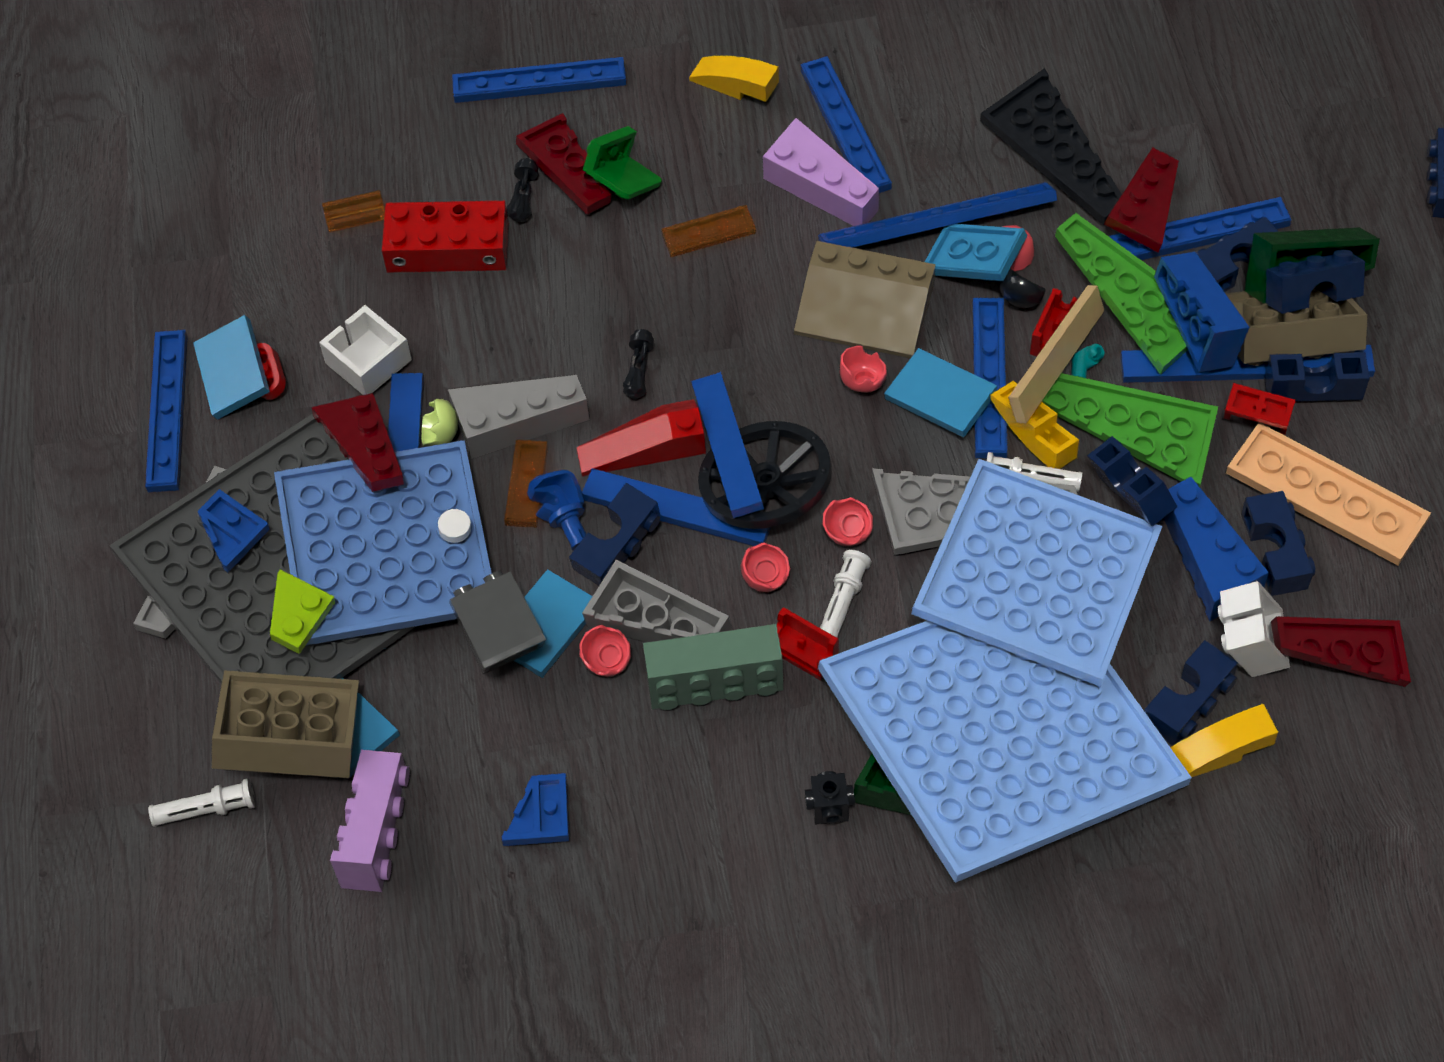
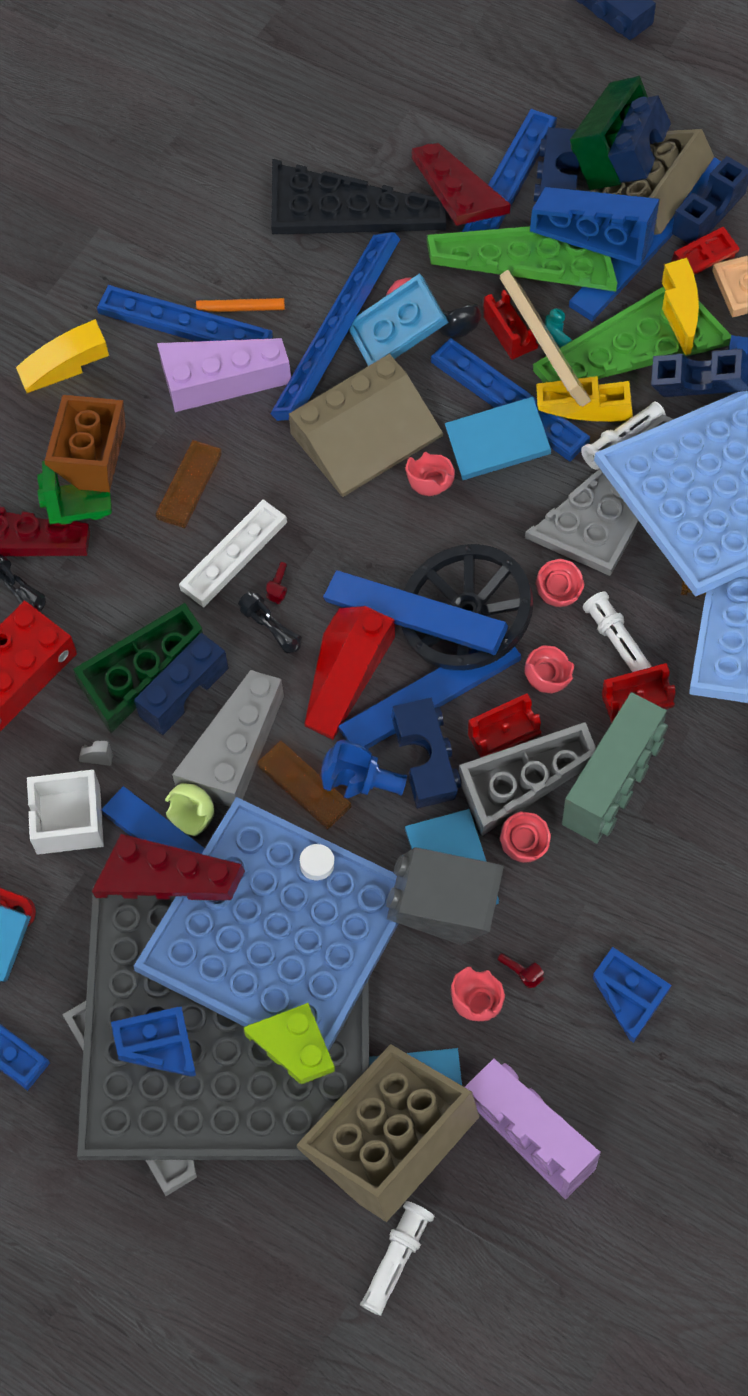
camera: 50 degrees left, 5 degrees up
(434, 339) = (99, 753): none -> light grey tile
(447, 709) = (477, 994): none -> coral hair
(499, 738) = (530, 976): none -> dark red hand
(521, 308) = (126, 668): none -> dark green wedge
(553, 341) = (165, 696): none -> dark blue arch
(668, 346) = (275, 591): none -> dark red hand
(671, 139) = (87, 441): none -> dark orange slope
(673, 299) = (233, 553): none -> white plate
(690, 573) = (504, 726): none -> red hinge
(896, 148) = (241, 305): none -> orange bar
(1188, 423) = (681, 302): none -> yellow slope

